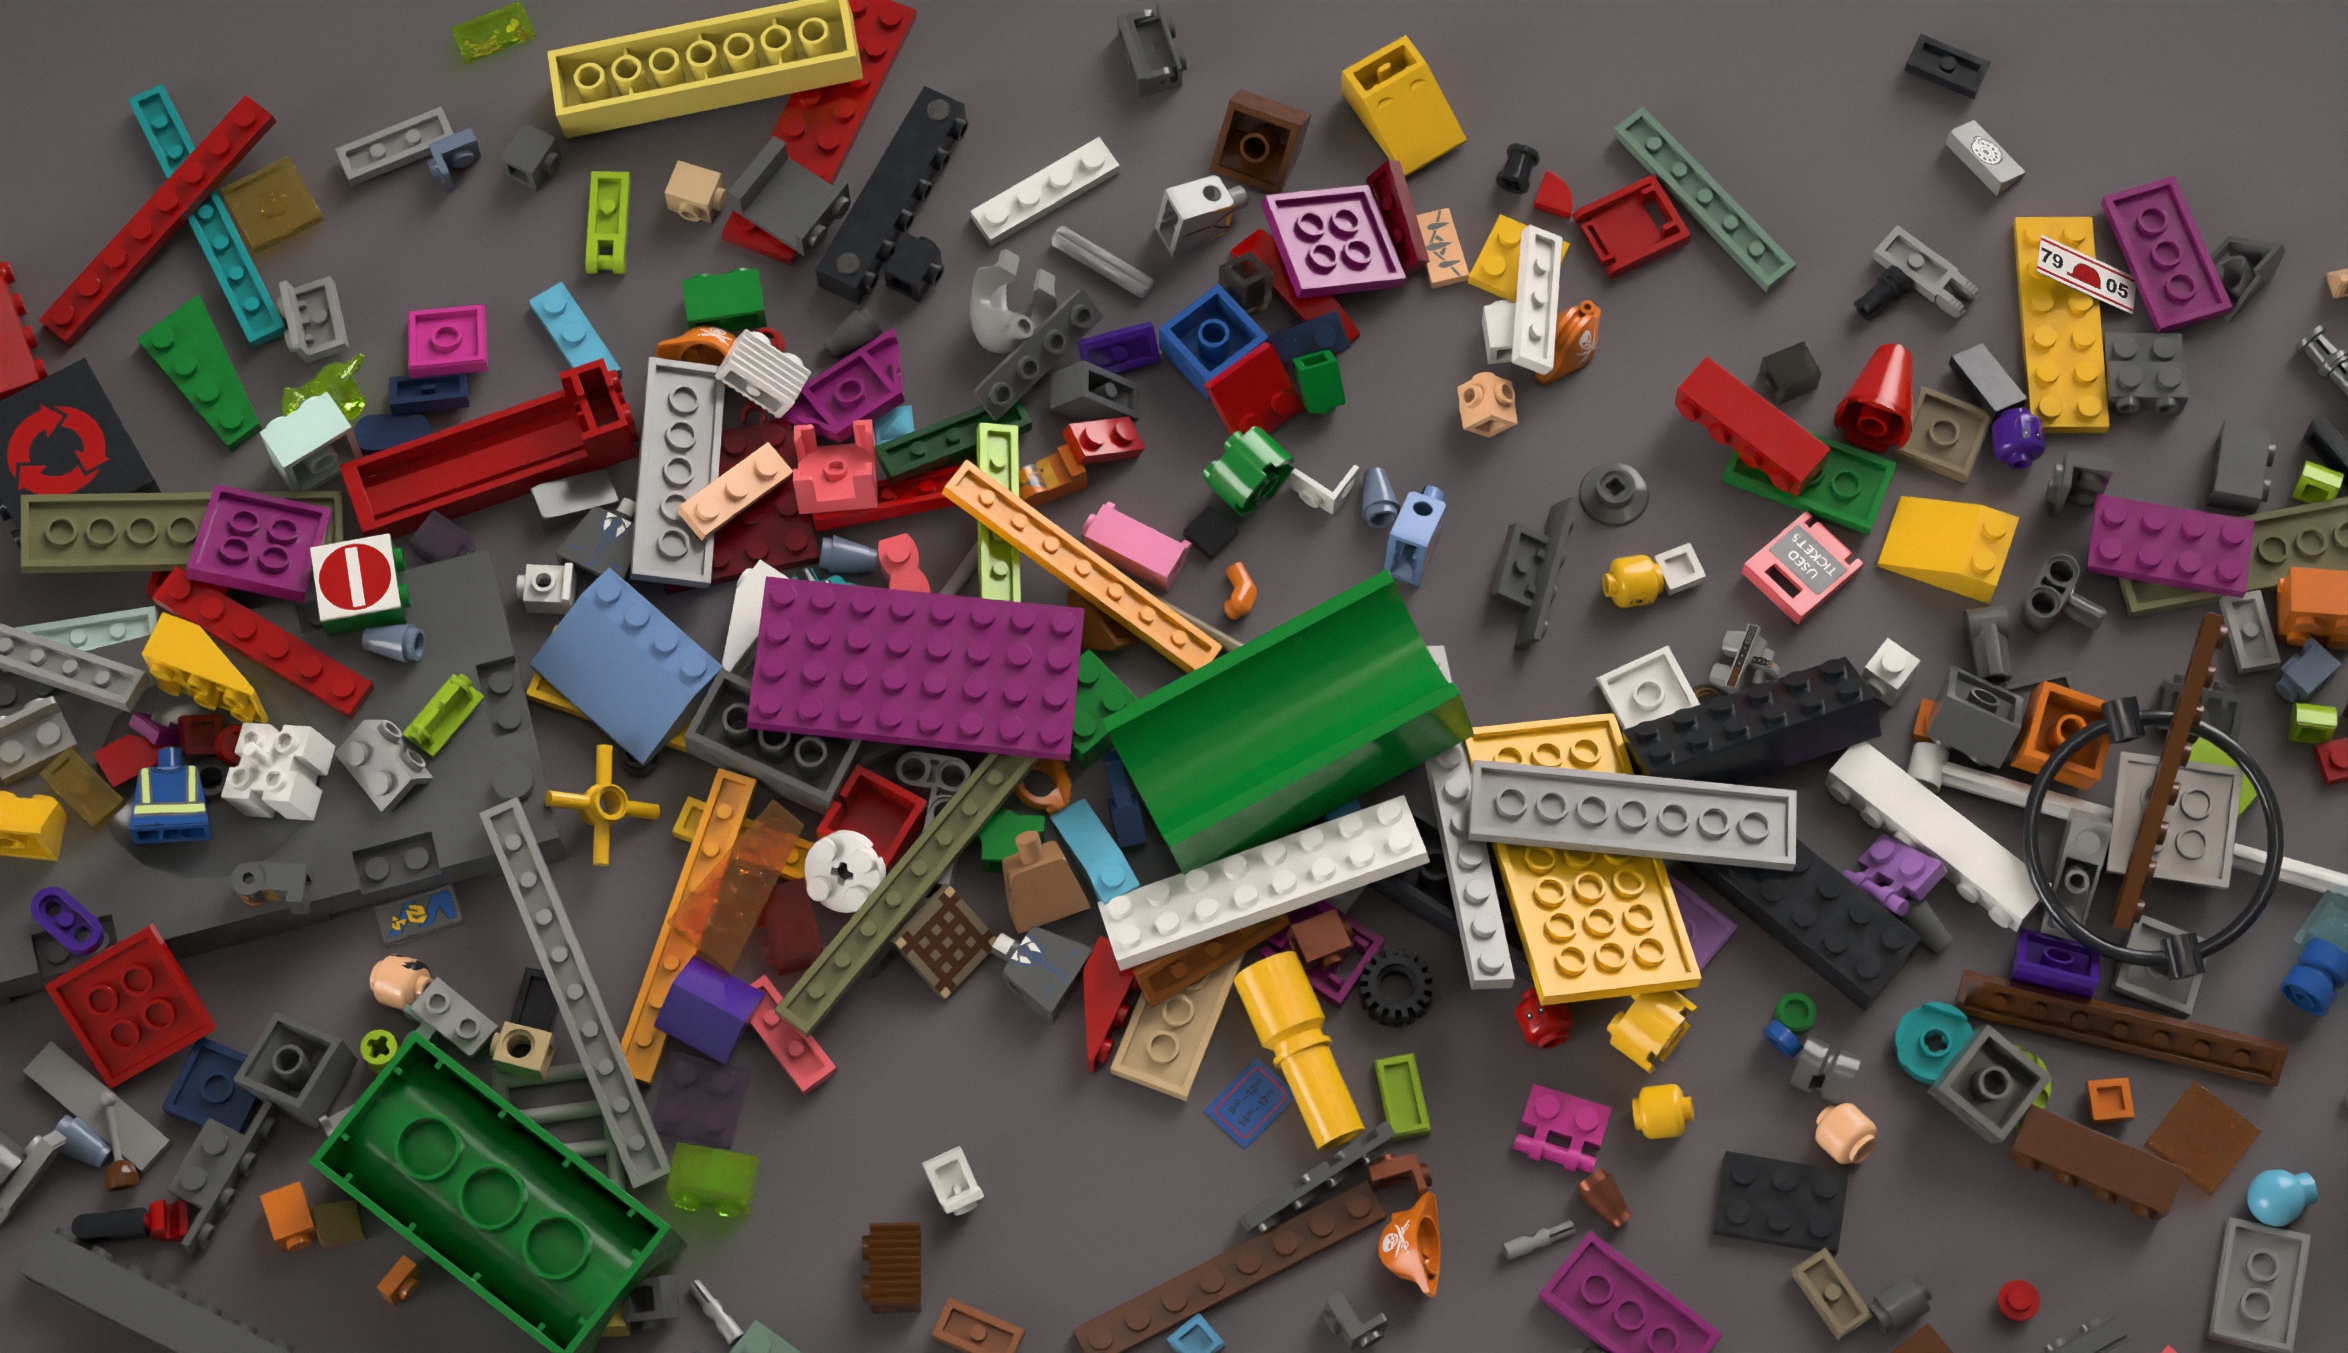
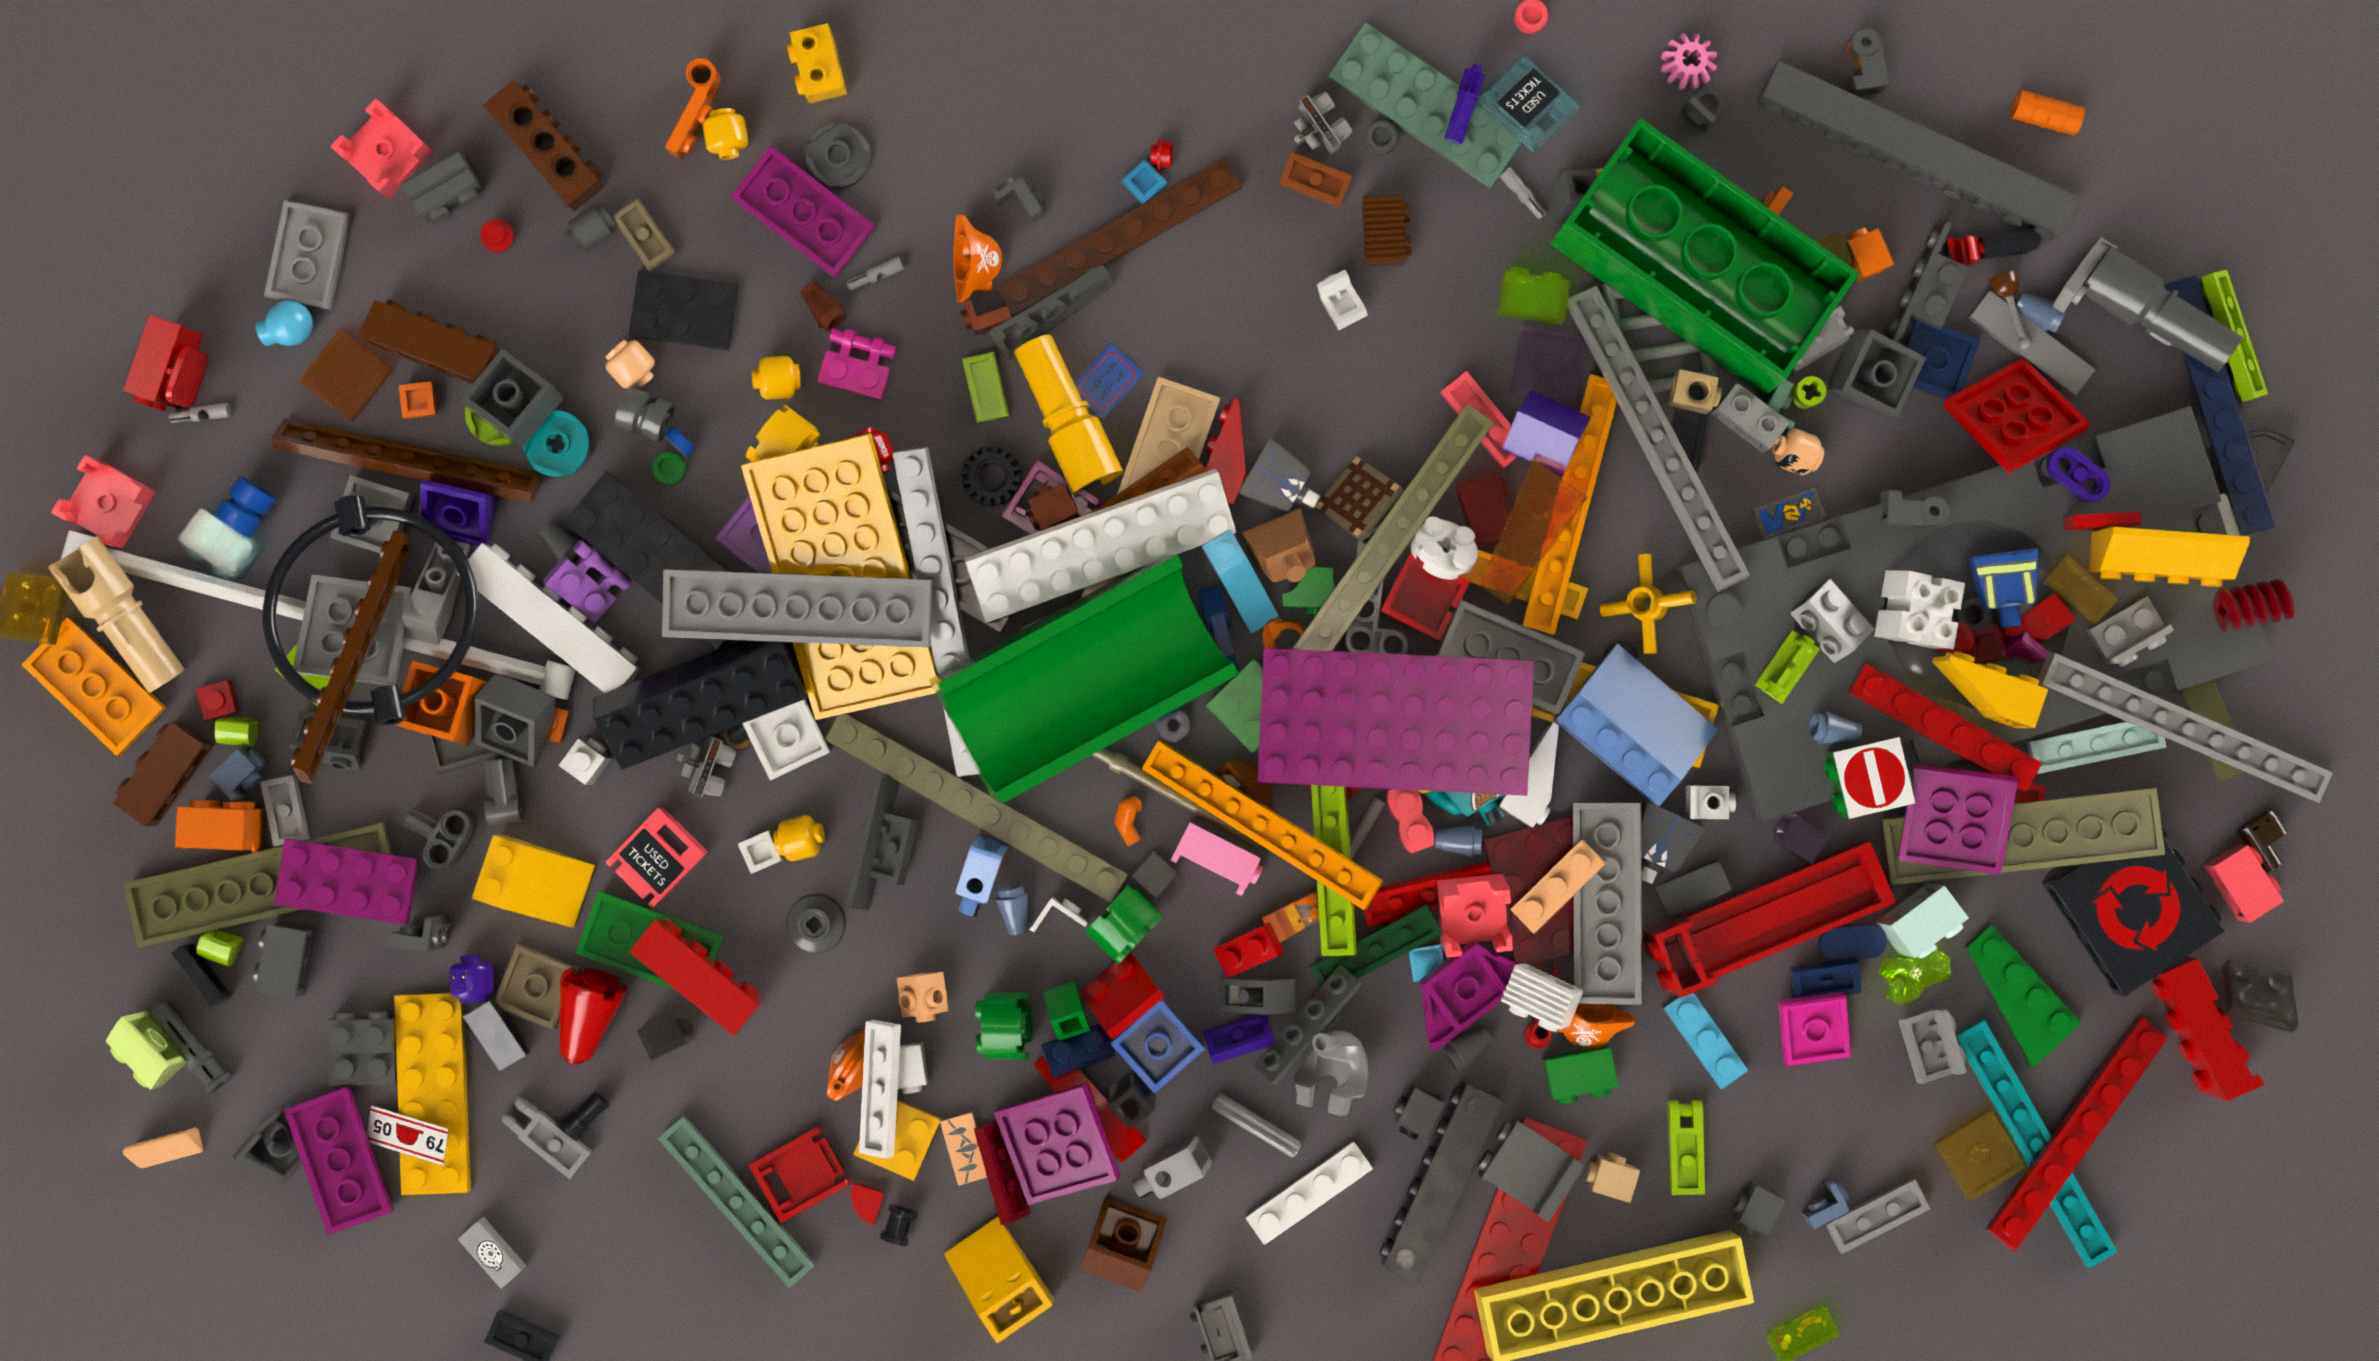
camera: 175 degrees right, 20 degrees up
(45, 865) = (2102, 521): none -> red tile
(1390, 366) = (1004, 1025): none -> green brick
(1433, 618) = (976, 806): none -> olive plate

